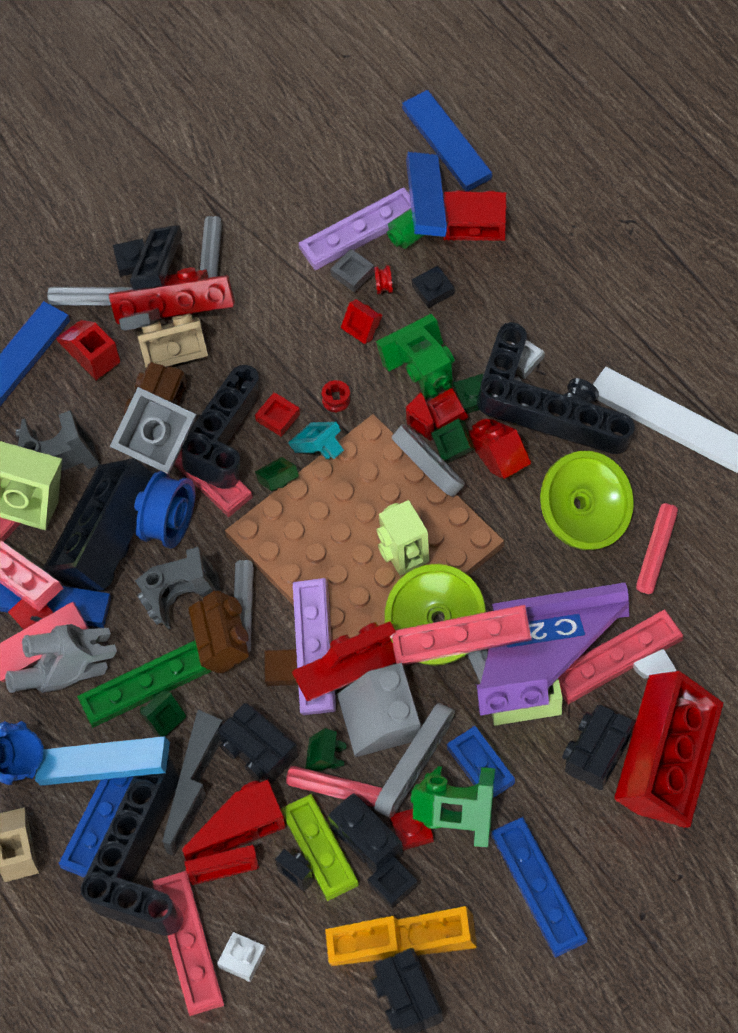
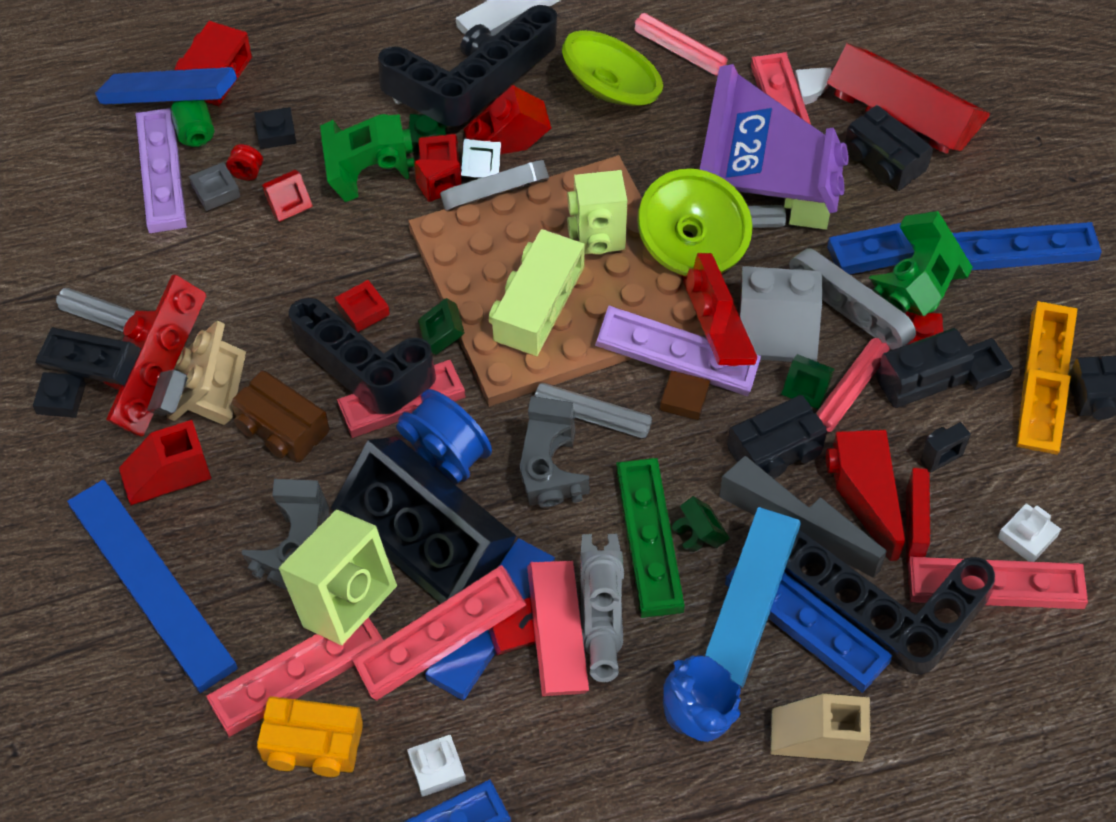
camera: 75 degrees left, 5 degrees down
(82, 295) = (85, 454): light grey axle -> none
(153, 430) = (345, 404): light grey slope -> none
(219, 631) = (626, 431): reddish brown brick -> none
(318, 437) = (420, 269): teal plate -> none
(319, 847) = (915, 421): lime tile -> none
(320, 524) = (537, 292): none -> yellowish green brick
(327, 399) = (370, 257): red bush -> none
(447, 141) = (96, 63): blue tile -> none
(462, 635) = (734, 201): coral tile -> none

